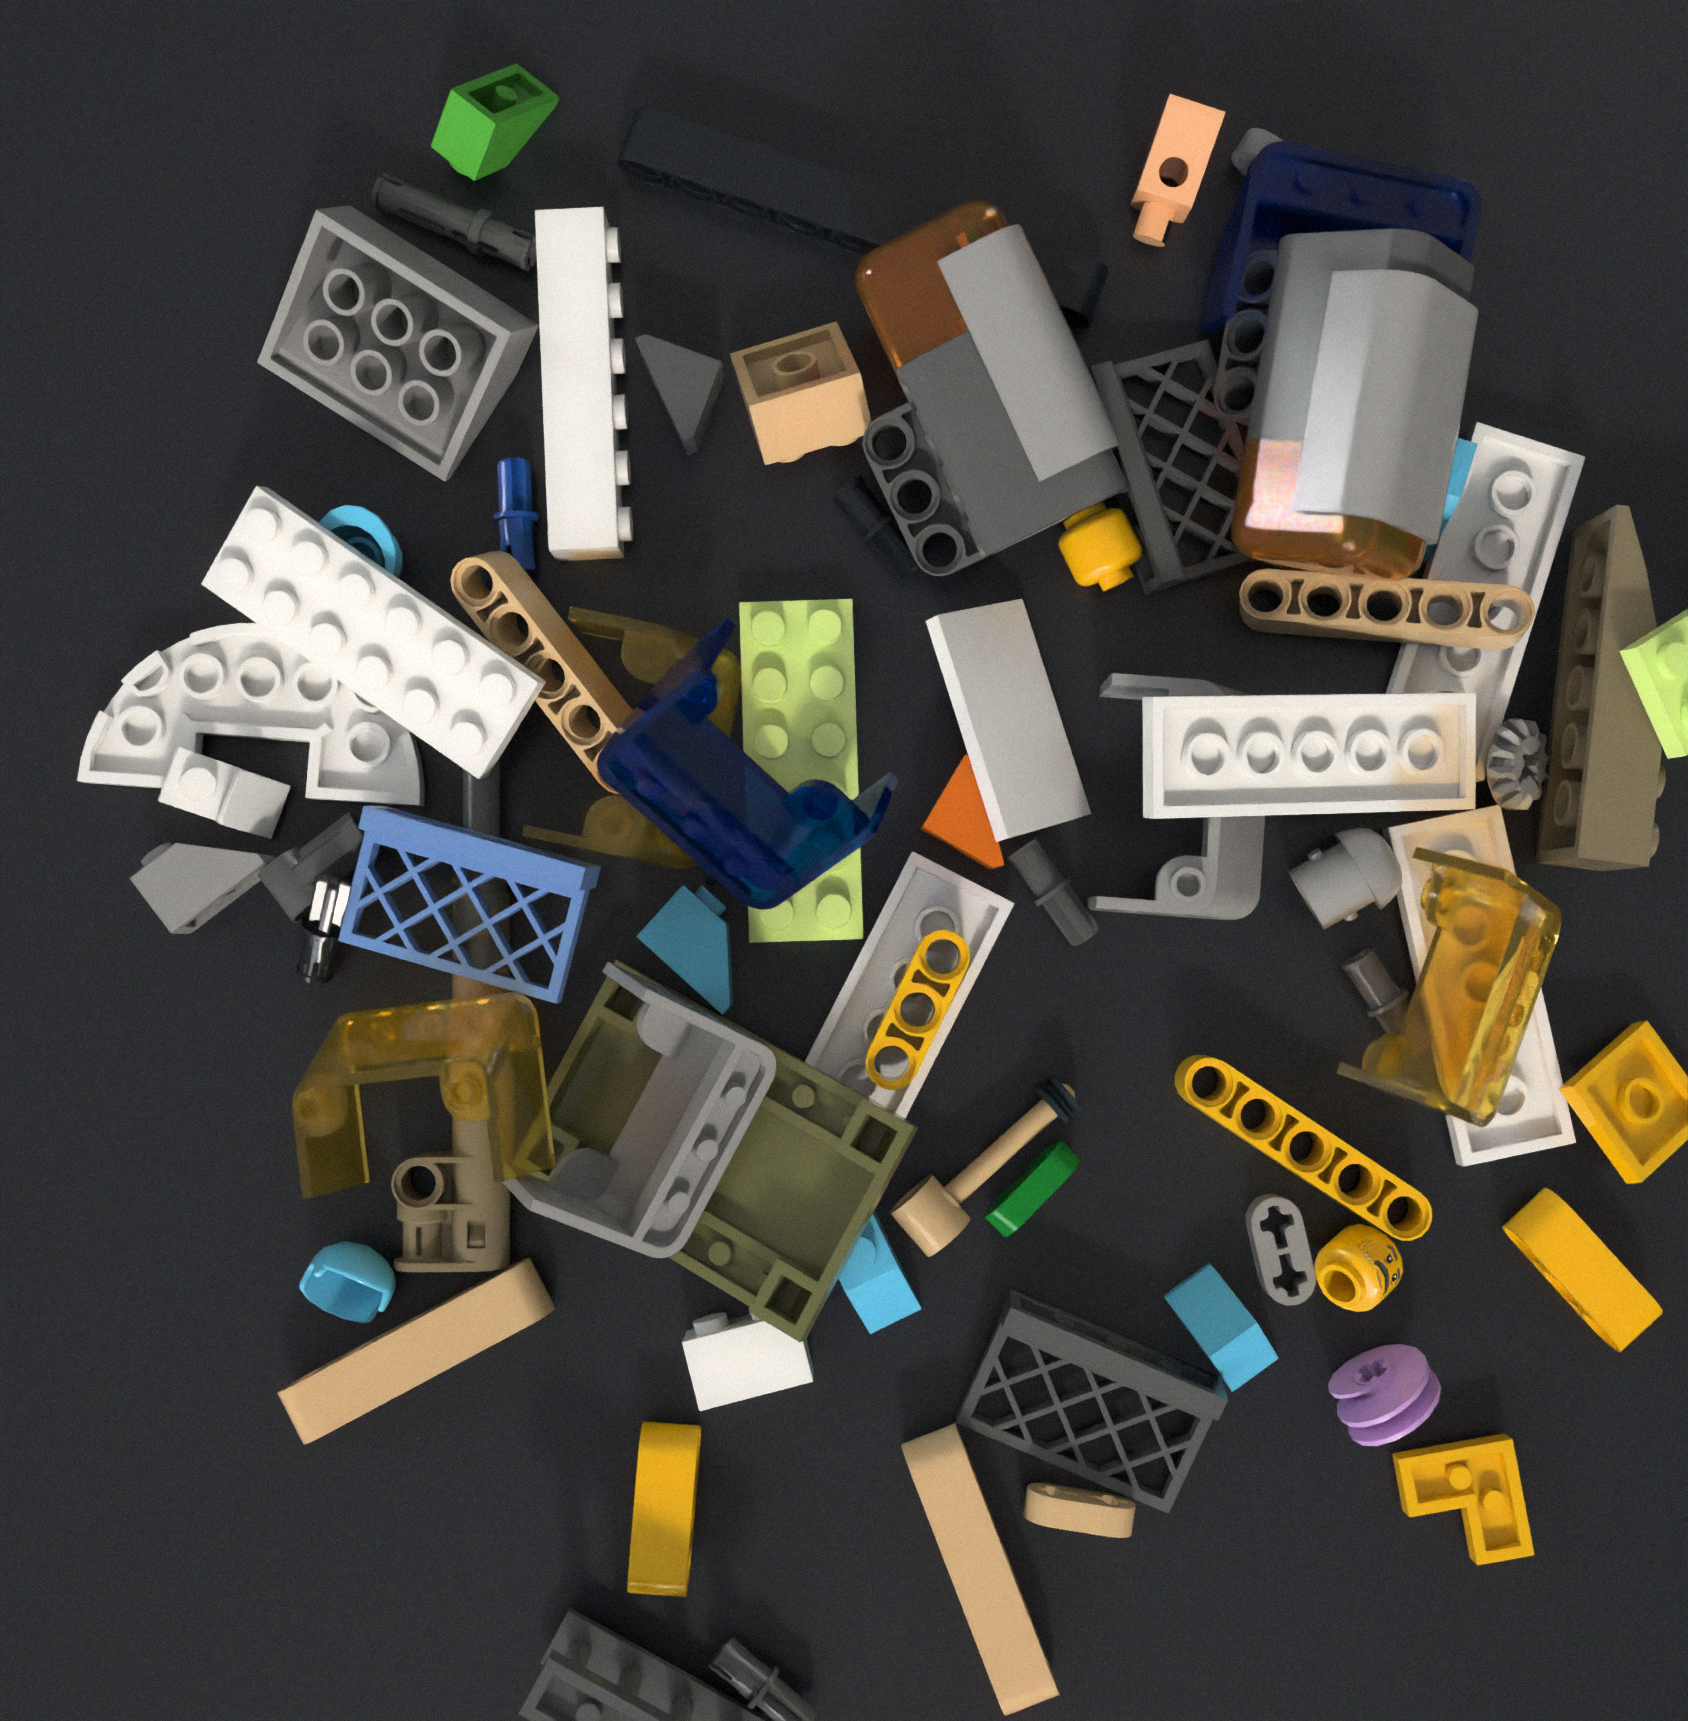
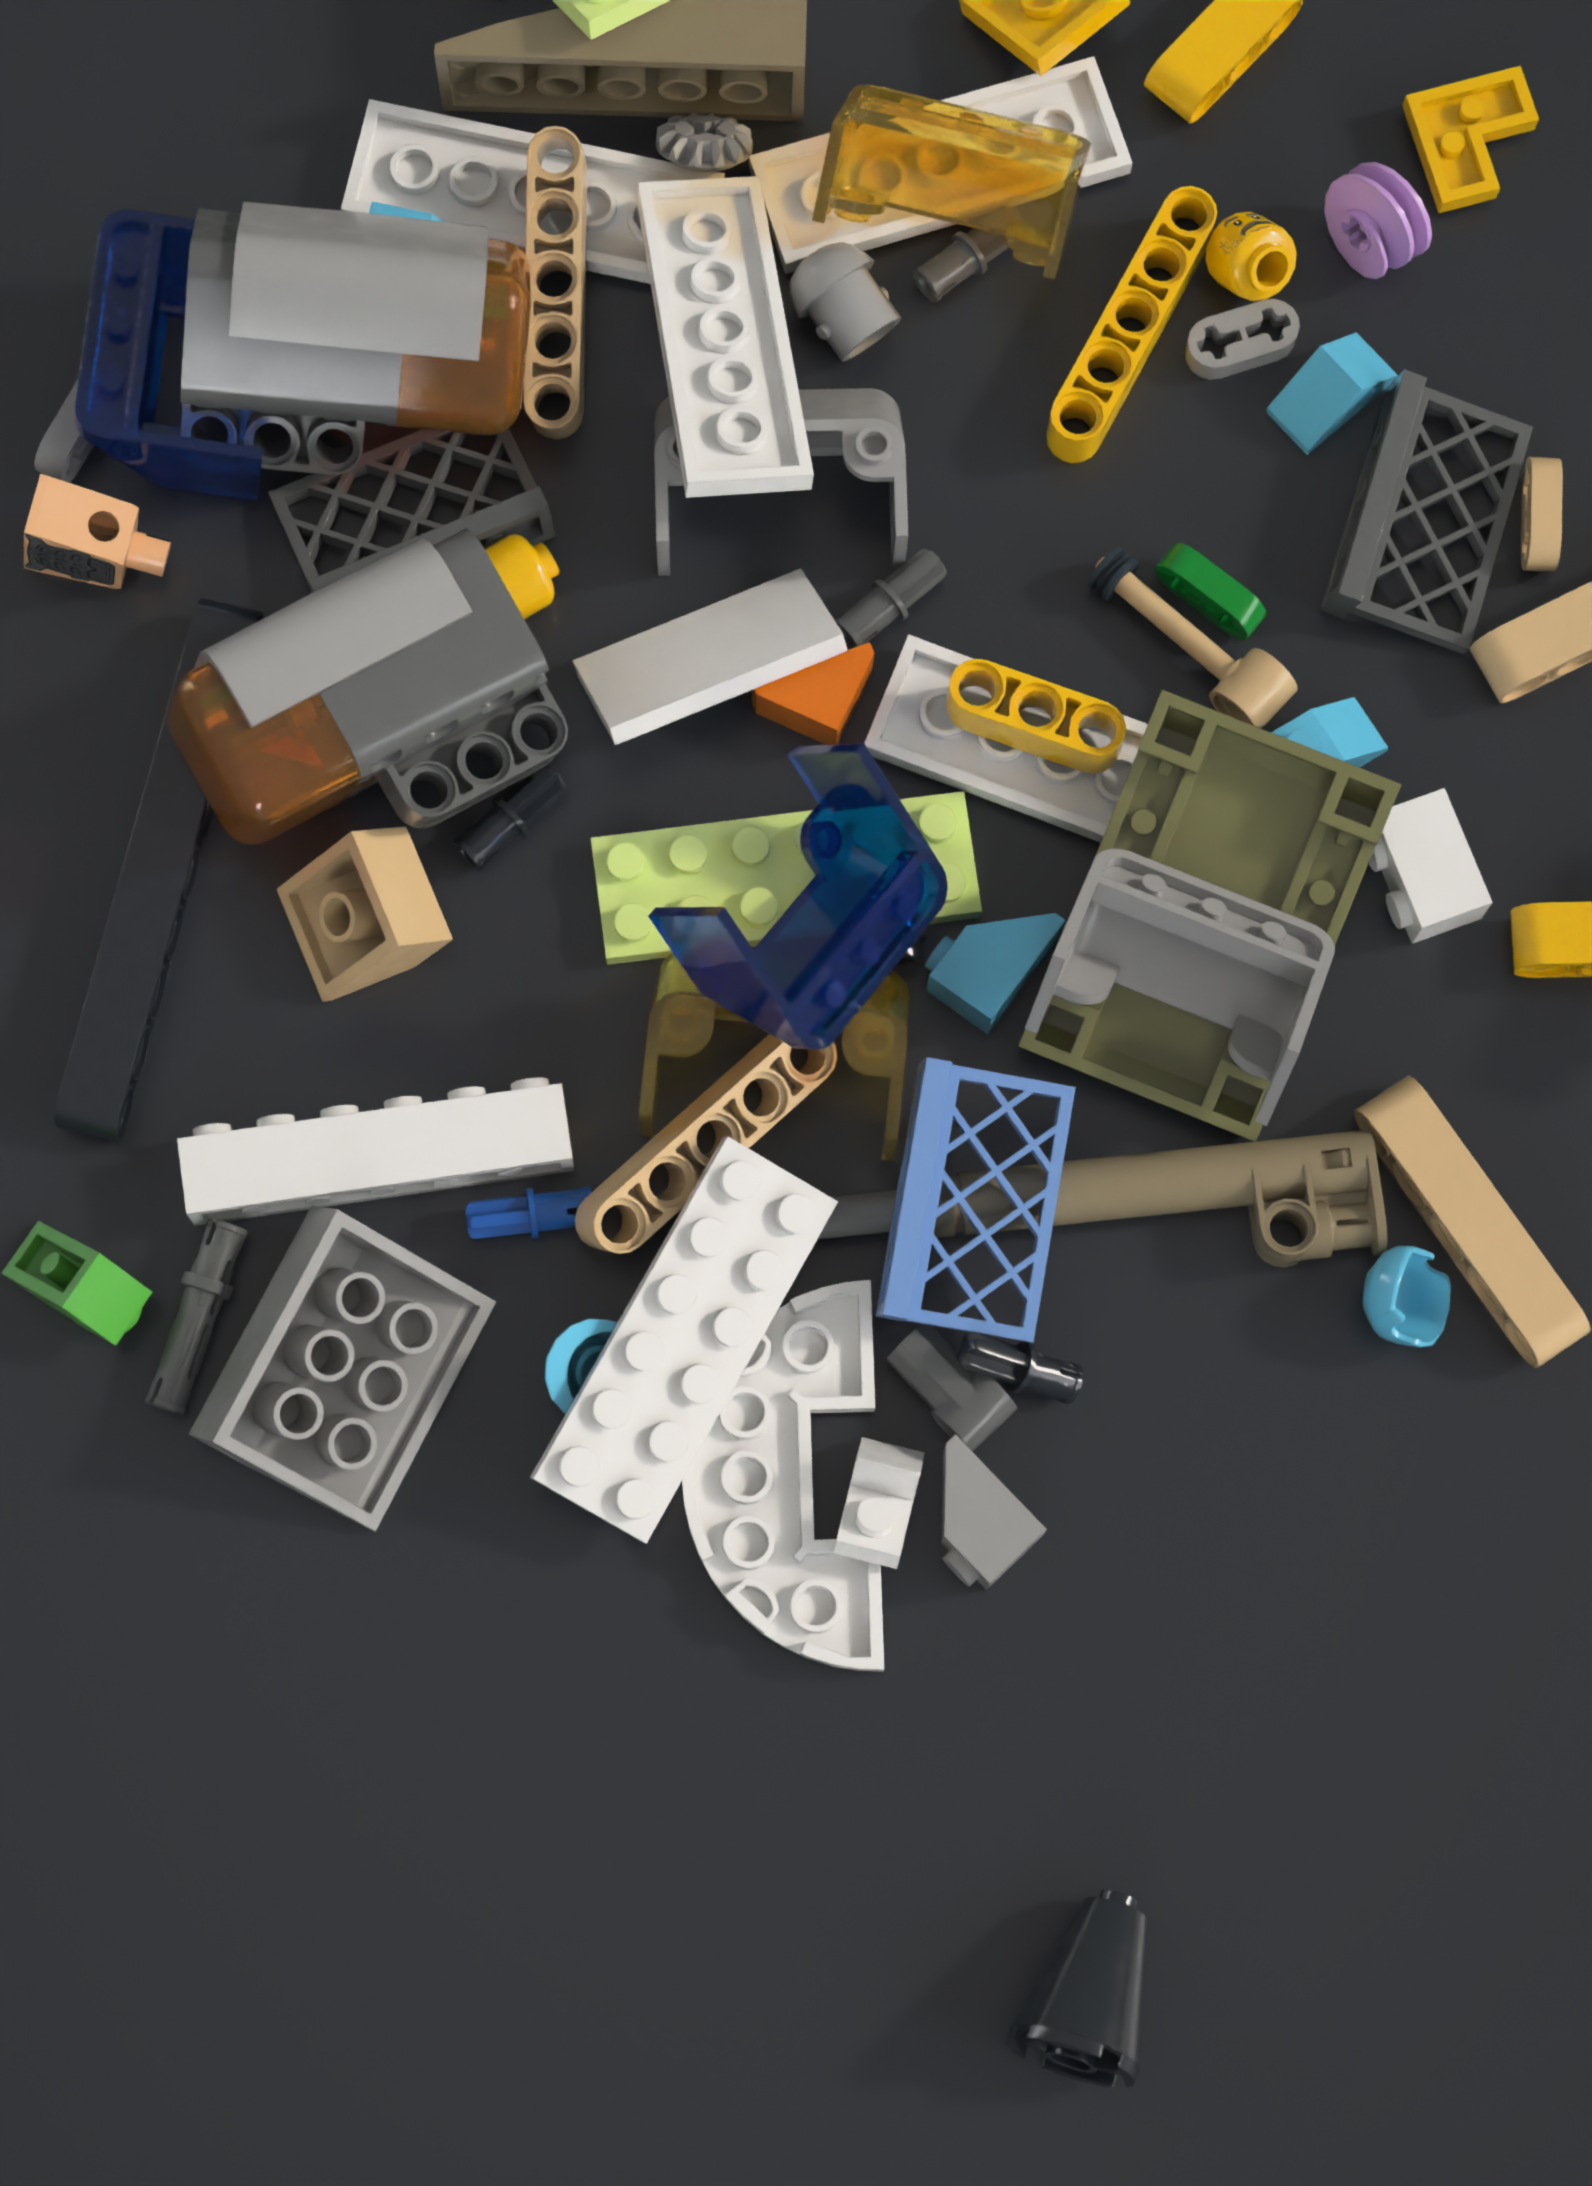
camera: 100 degrees left, 10 degrees down
(486, 1067) = (1129, 1209): clear yellow windscreen -> none
(685, 384) = (371, 1040): dark grey slope -> none

